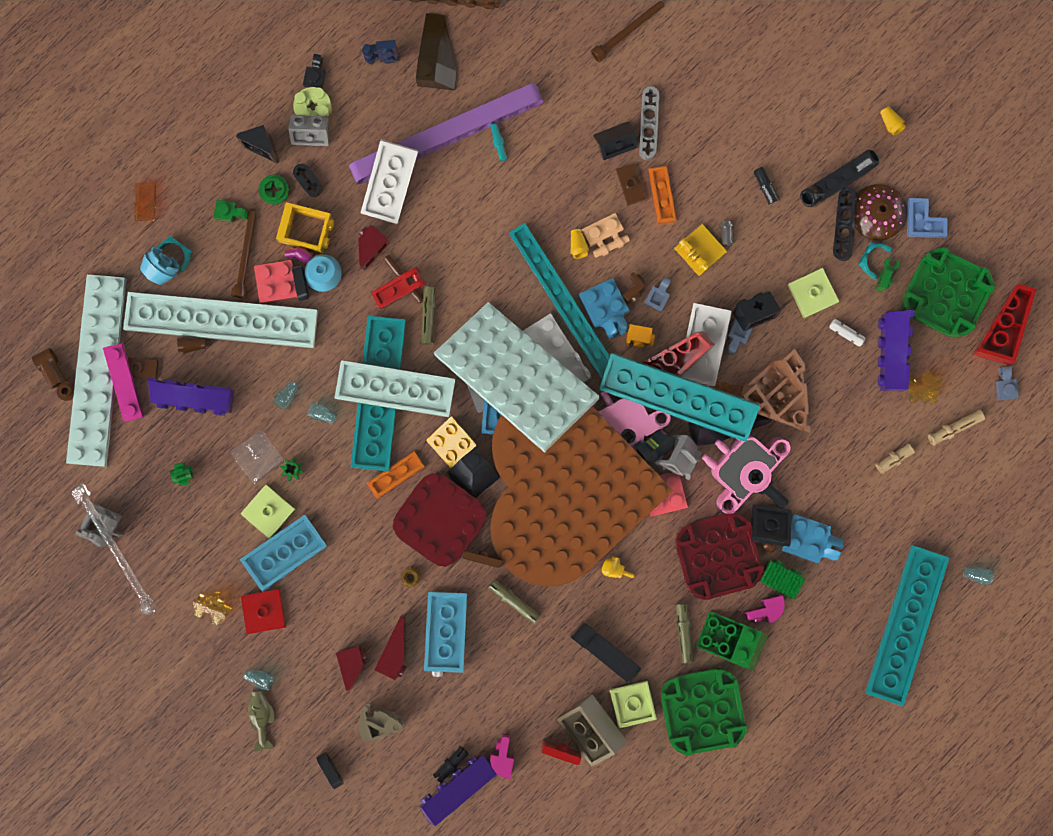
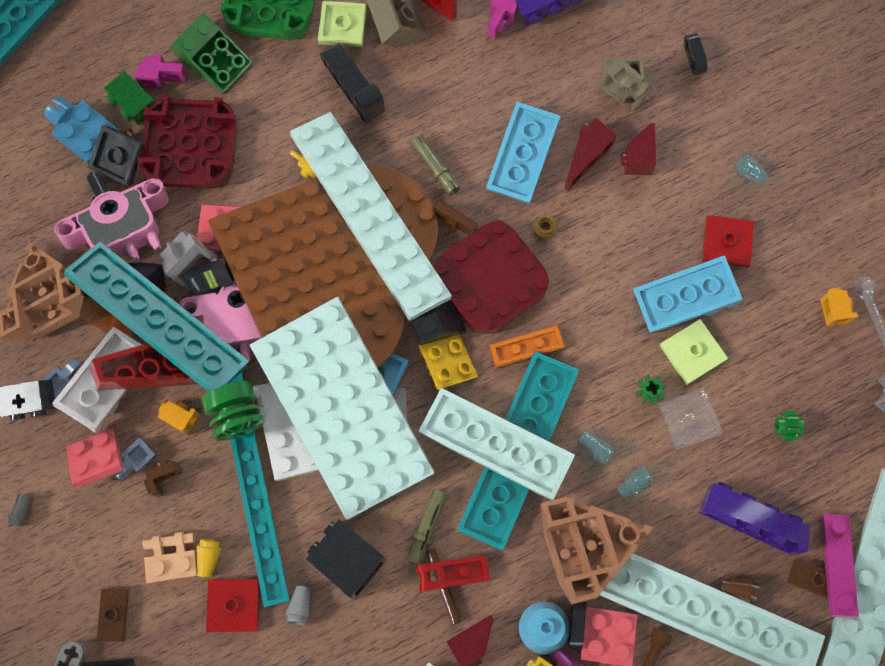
camera: 160 degrees left, 10 degrees down
(165, 581) = (837, 307): none -> light orange brick
(213, 605) = (788, 262): clear yellow hips -> none
(260, 714) = (759, 134): olive animal -> none
(305, 333) = (587, 545): none -> nougat wedge
(450, 764) = (560, 22): black pin -> none
(477, 272) = (345, 558): none -> black slope
(500, 231) = (299, 607): none -> light grey cone
(548, 218) = (233, 605): none -> red plate
(550, 537) = (370, 216): none -> light aqua plate
(595, 347) = (232, 410): none -> green wheel
(606, 307) = (204, 465): dark azure plate -> none
(662, 195) = (79, 588): orange tile -> none
(683, 624) = (256, 85): olive pin -> none
(687, 285) = (94, 458): none -> coral plate
(700, 250) = (60, 502): yellow hinge -> none

